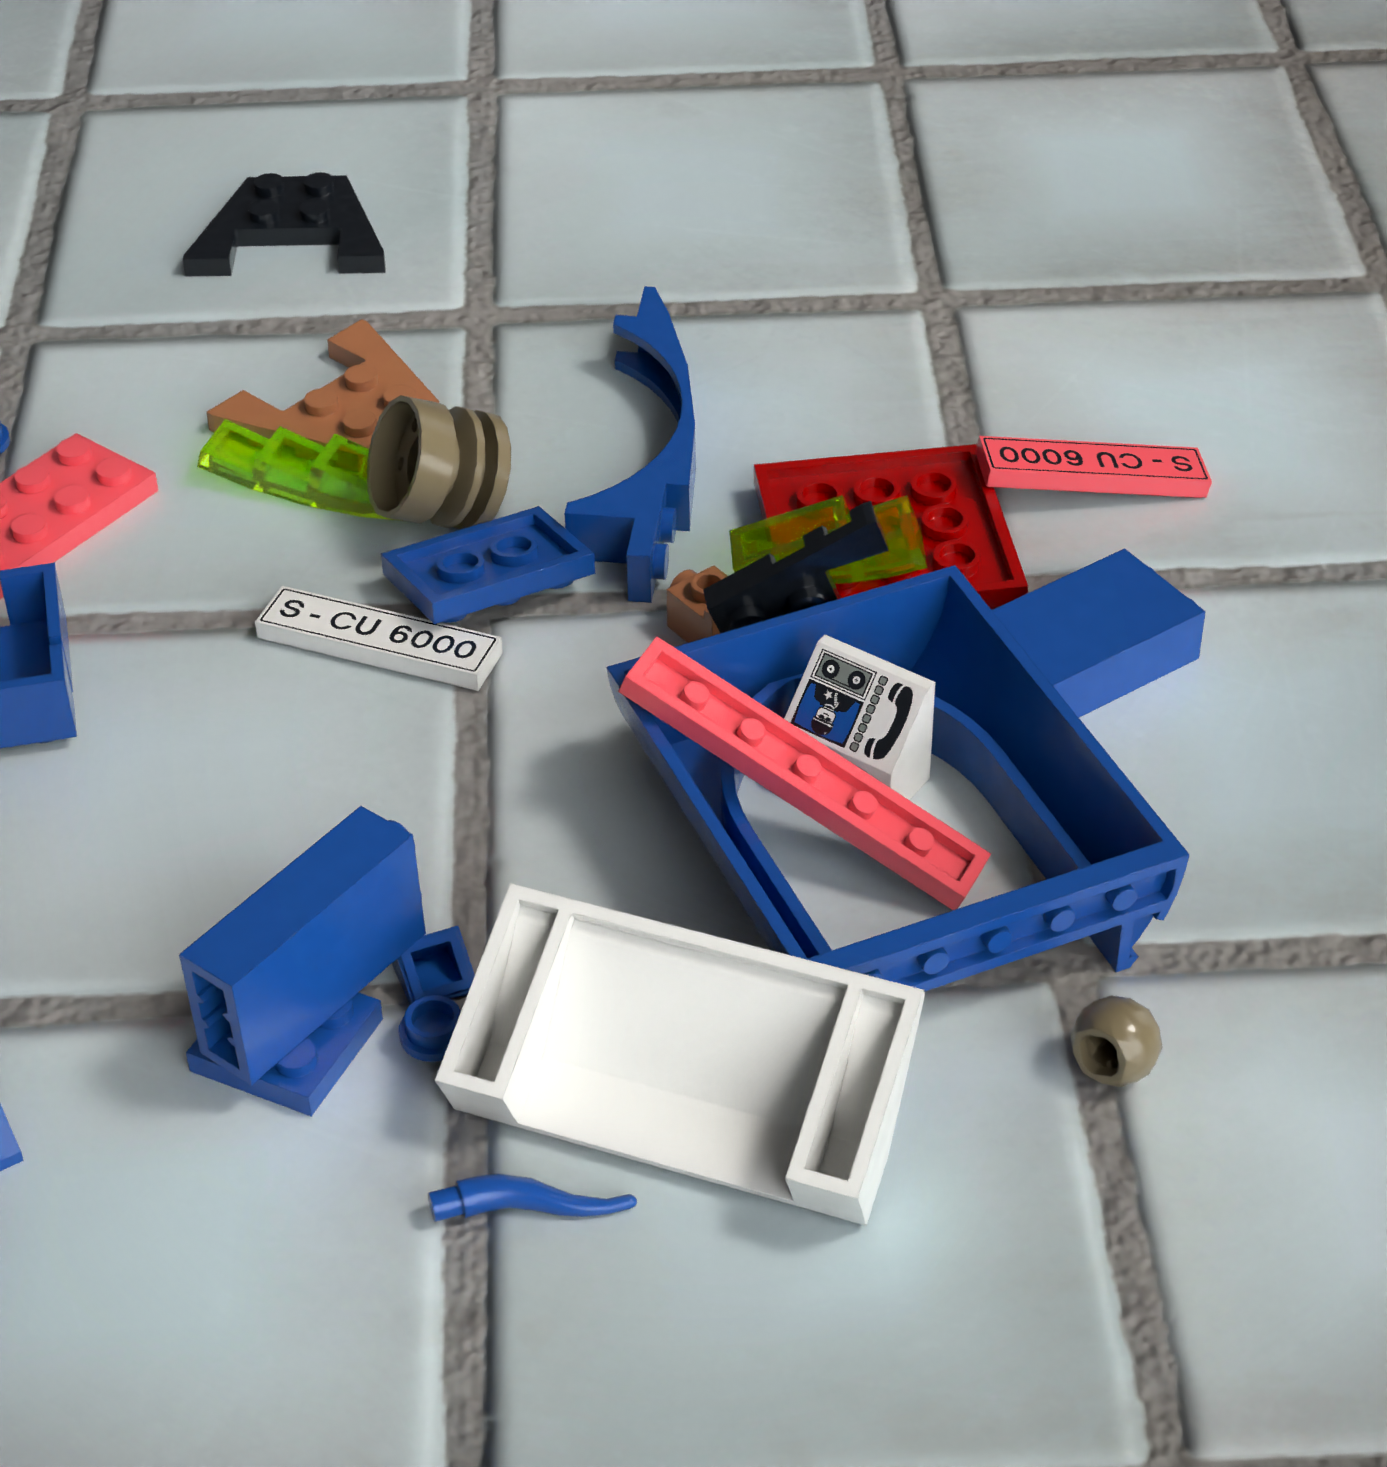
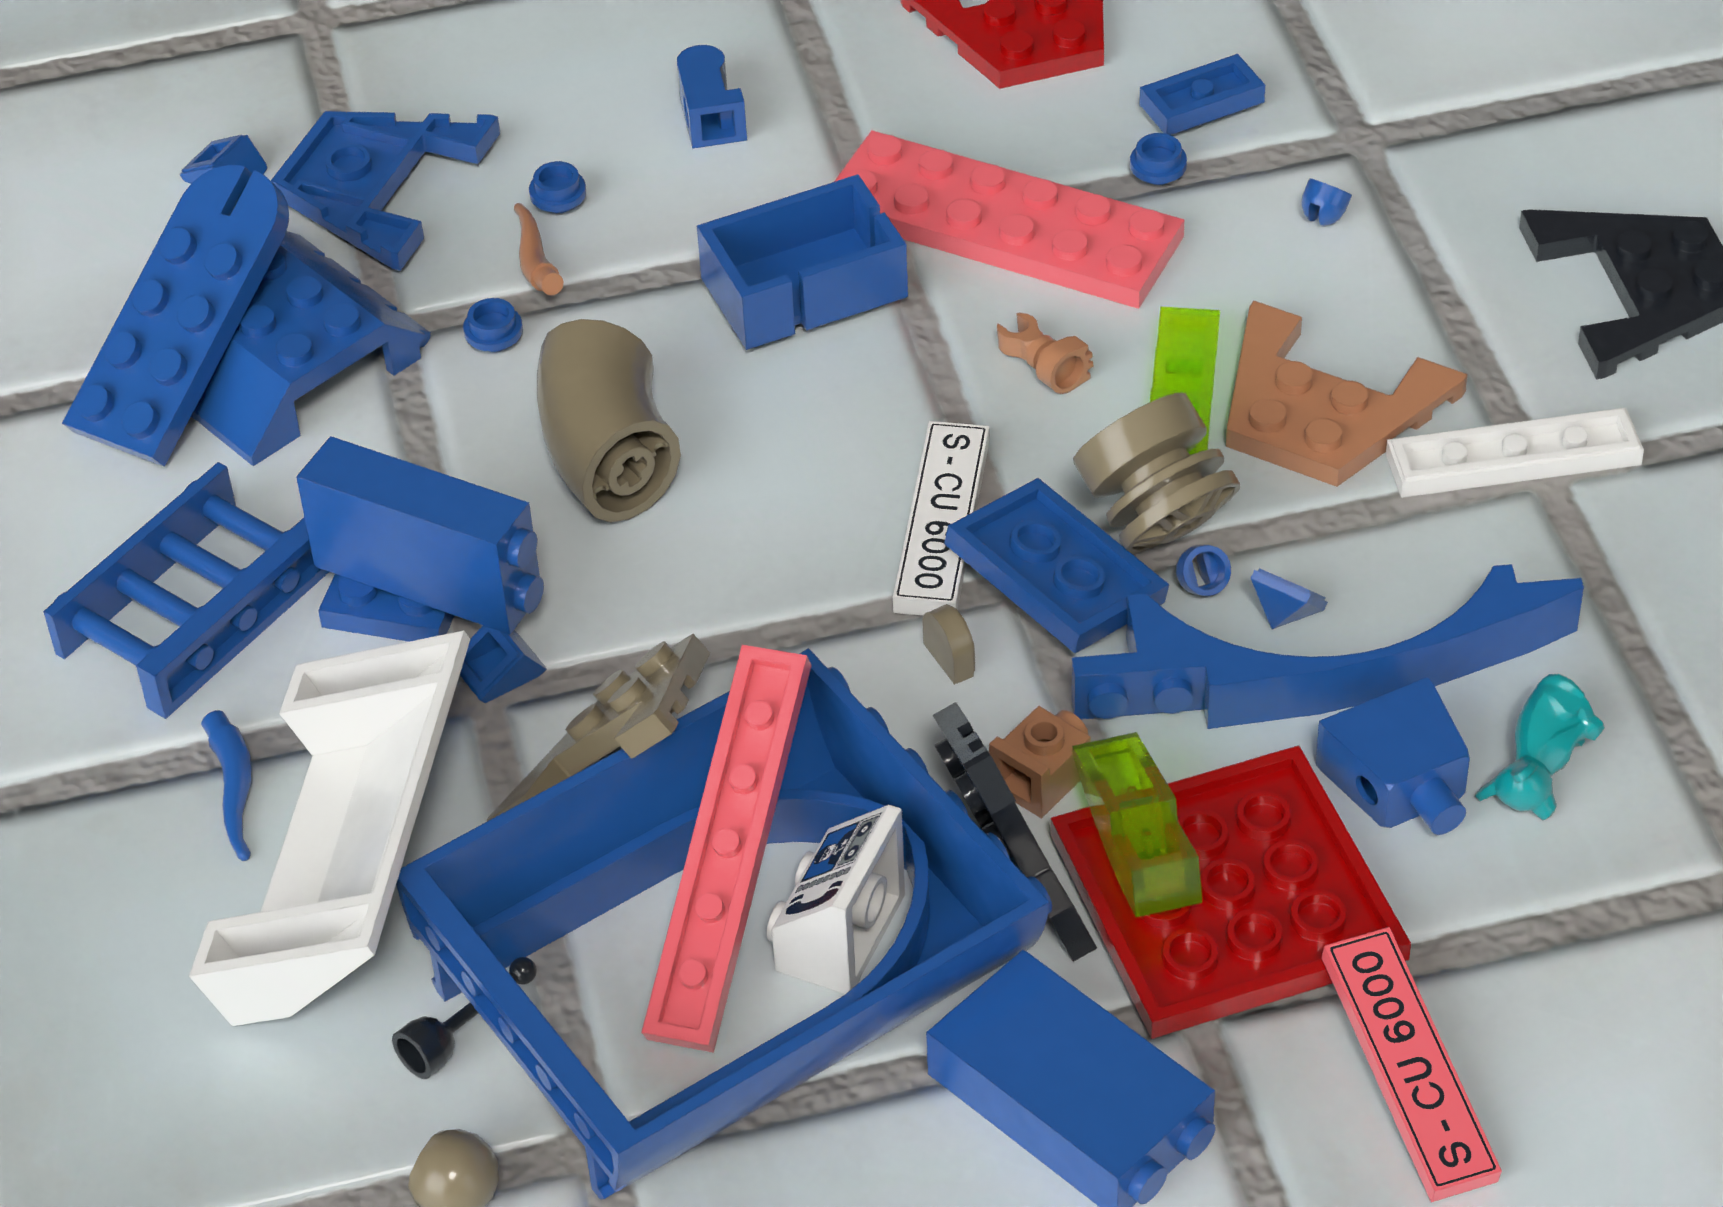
camera: 80 degrees right, 5 degrees up
(102, 355) = (1324, 202): none -> blue hinge
(153, 821) = (604, 418): none -> dark tan brick
(171, 554) = (1058, 363): none -> nougat piece
(261, 1143) = (207, 634): none -> blue fence
(454, 321) = (1514, 452): none -> white tile
(524, 491) = (1212, 566): none -> blue hinge
(547, 645) = (950, 642): none -> dark tan tile
(573, 455) = (1285, 600): none -> blue slope
(595, 806) = (628, 713): none -> dark tan wing
(771, 334) = (1546, 733): none -> teal animal
(782, 416) = (1398, 758): none -> blue torso
(942, 1060) = (428, 1044): none -> black hinge

